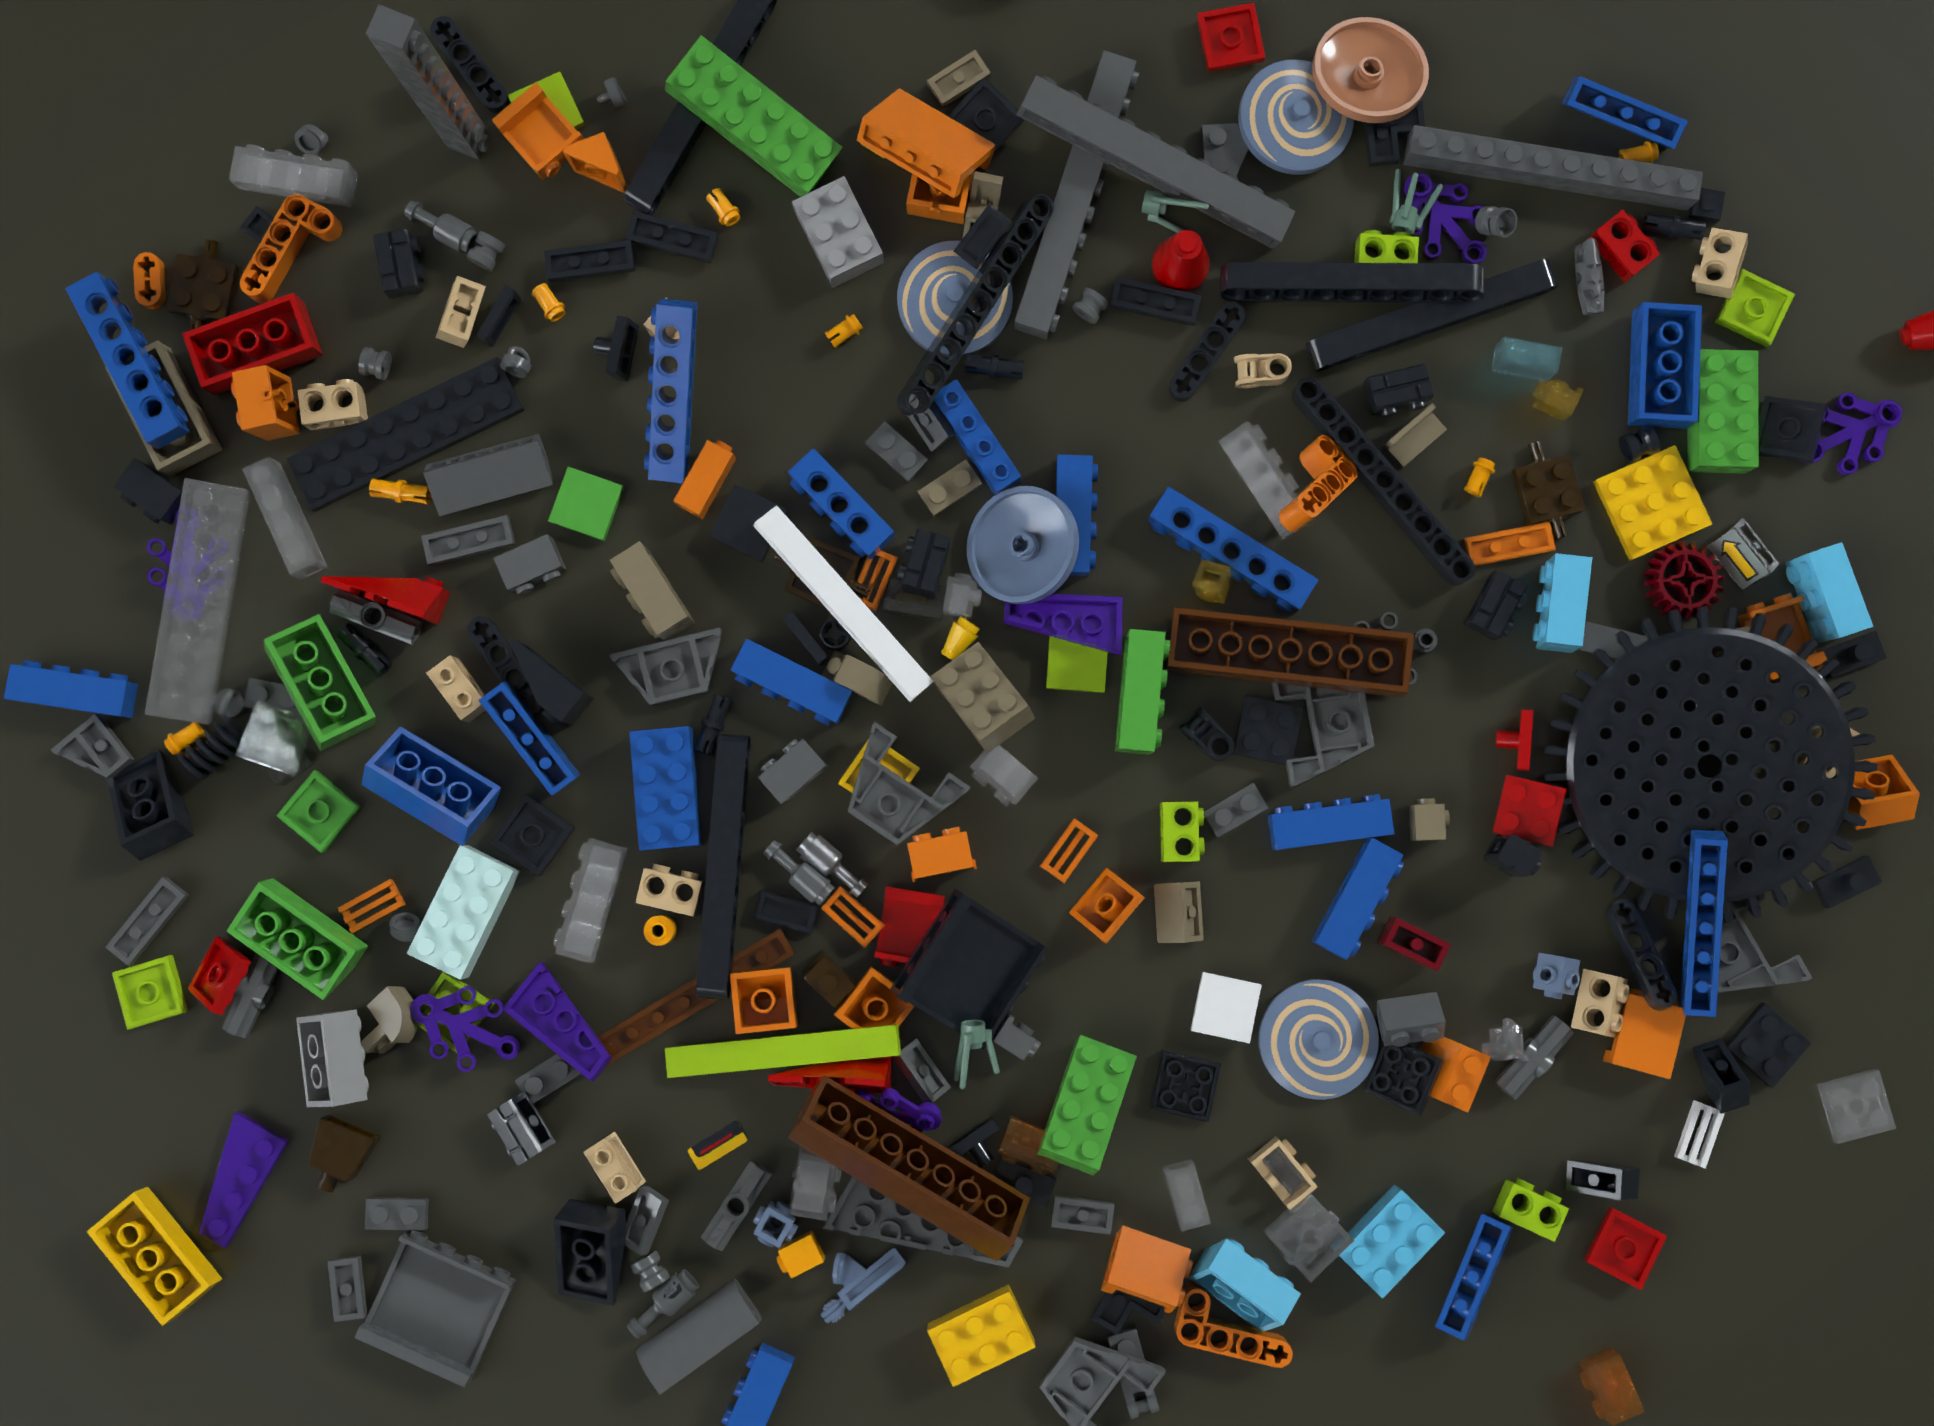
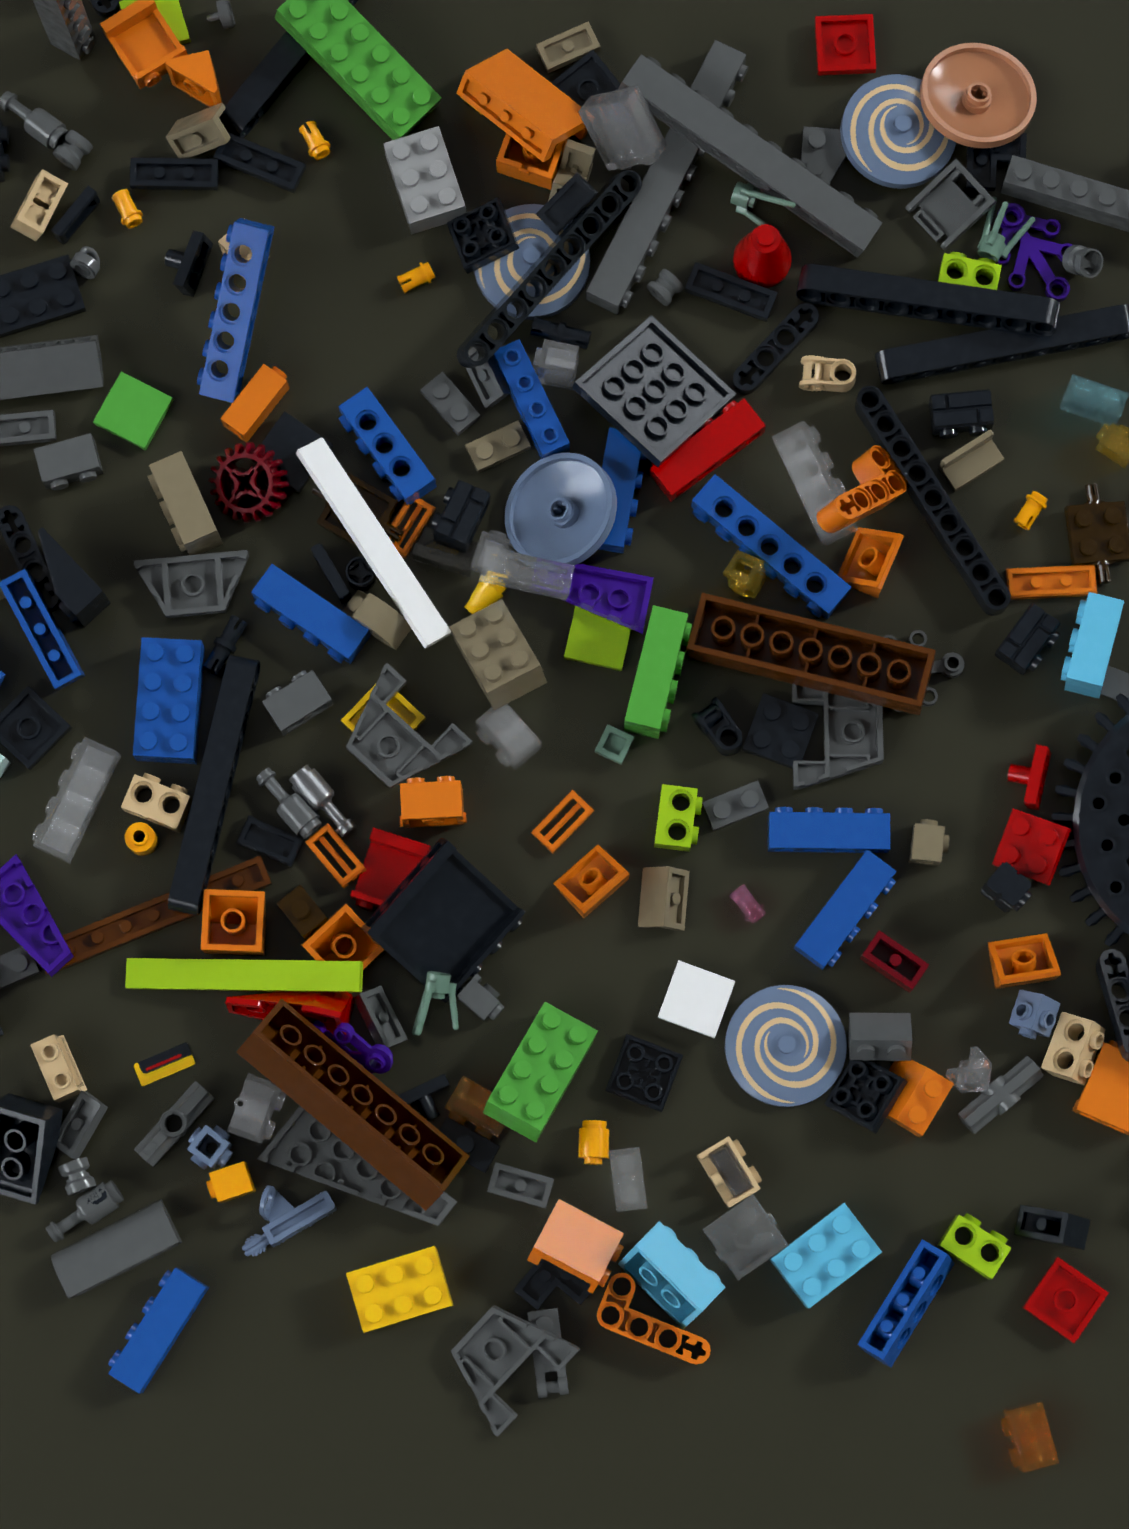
camera: 10 degrees right, 5 degrees down
(607, 216) = (198, 132): none -> dark tan panel
(697, 580) = (258, 489): none -> dark red gear
(903, 279) = (483, 235): none -> black tile
(996, 398) = (557, 364): none -> clear brick
(999, 614) = (526, 573): none -> clear brick
(1027, 152) = (623, 128): none -> clear brick
(1096, 412) = (654, 391): none -> black plate
(1108, 767) = (614, 744): none -> sand green plate
(1147, 1162) = (593, 1142): none -> light orange brick
(1155, 462) = (708, 449): none -> red brick
(1262, 906) = (748, 904): none -> clear pink pin
(1332, 549) = (870, 559): none -> orange slope
(1355, 187) = (947, 208): none -> dark grey container
(1537, 923) = (1023, 961): none -> orange slope

